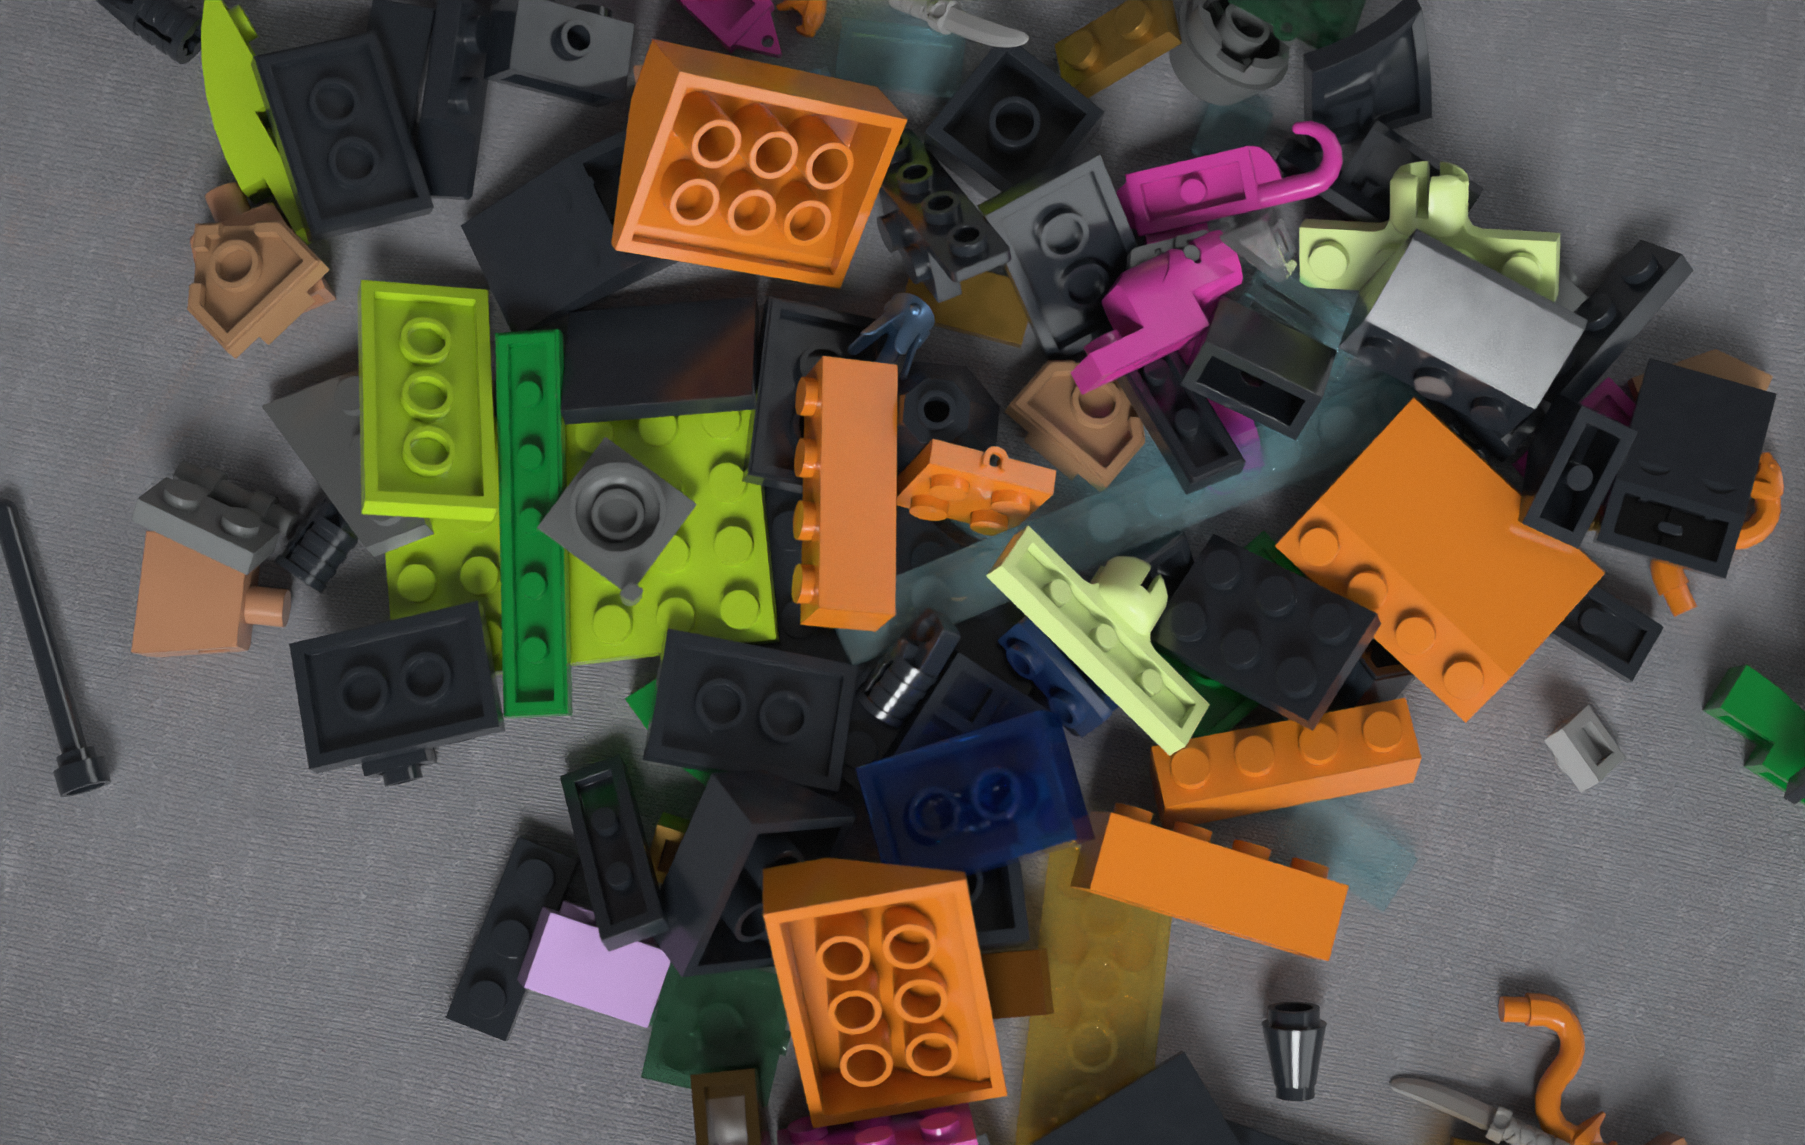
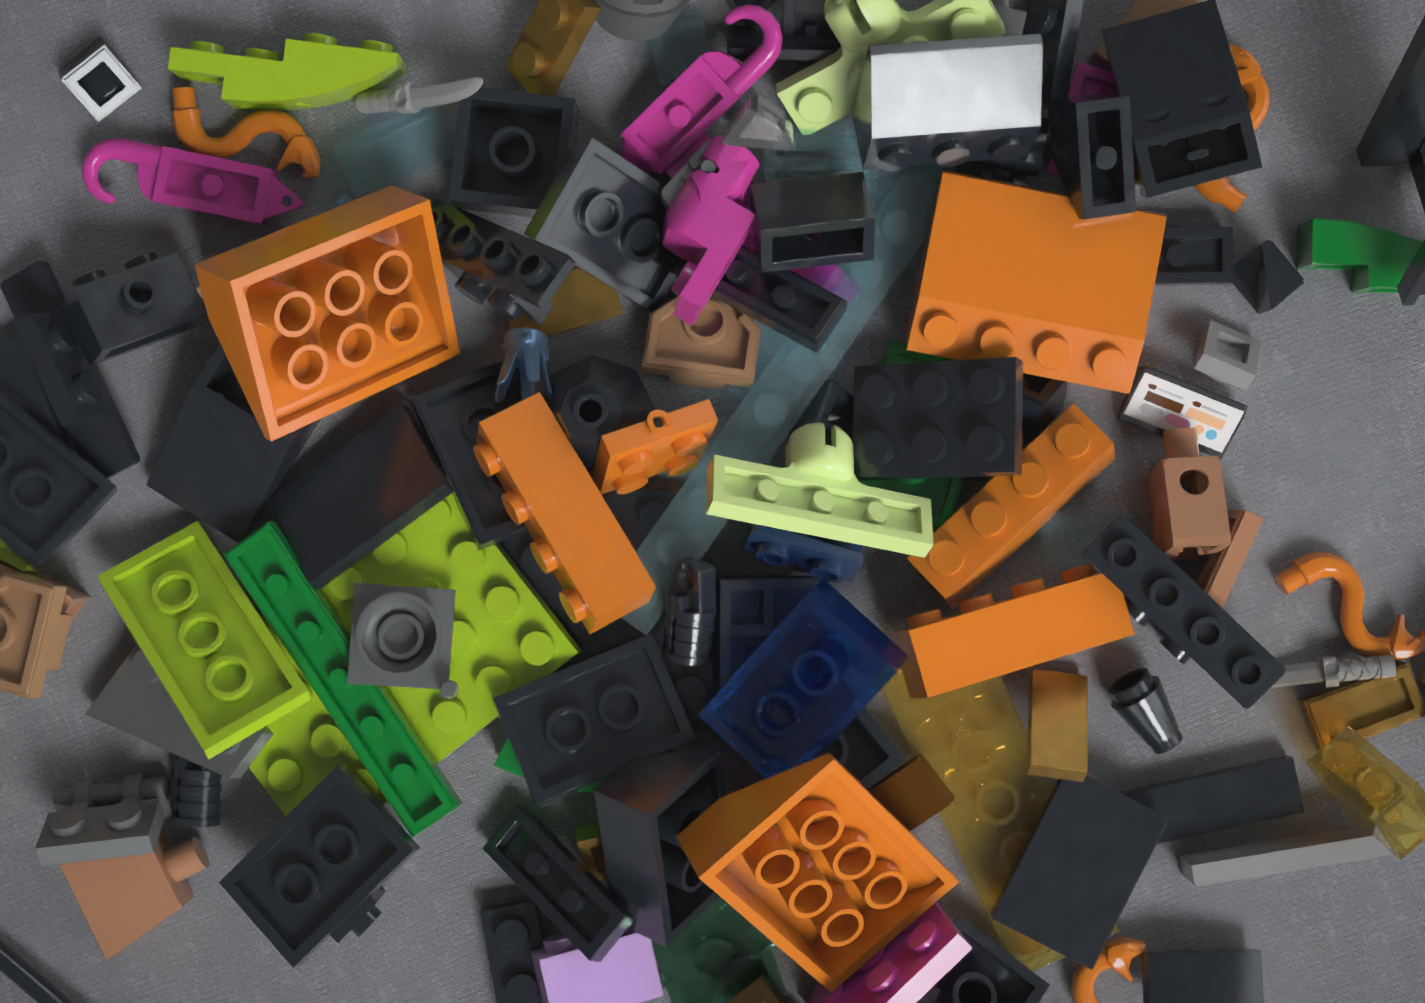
camera: 30 degrees left, 5 degrees up
(1197, 1005) = (1057, 725): none -> pearl gold tile
(1390, 969) = (1184, 611): none -> black bracket
(1457, 865) = (1183, 522): none -> nougat torso
(1457, 950) = (1223, 568): none -> nougat tile
(1506, 777) = (1167, 403): none -> slope
(1667, 694) = (1265, 276): none -> black slope

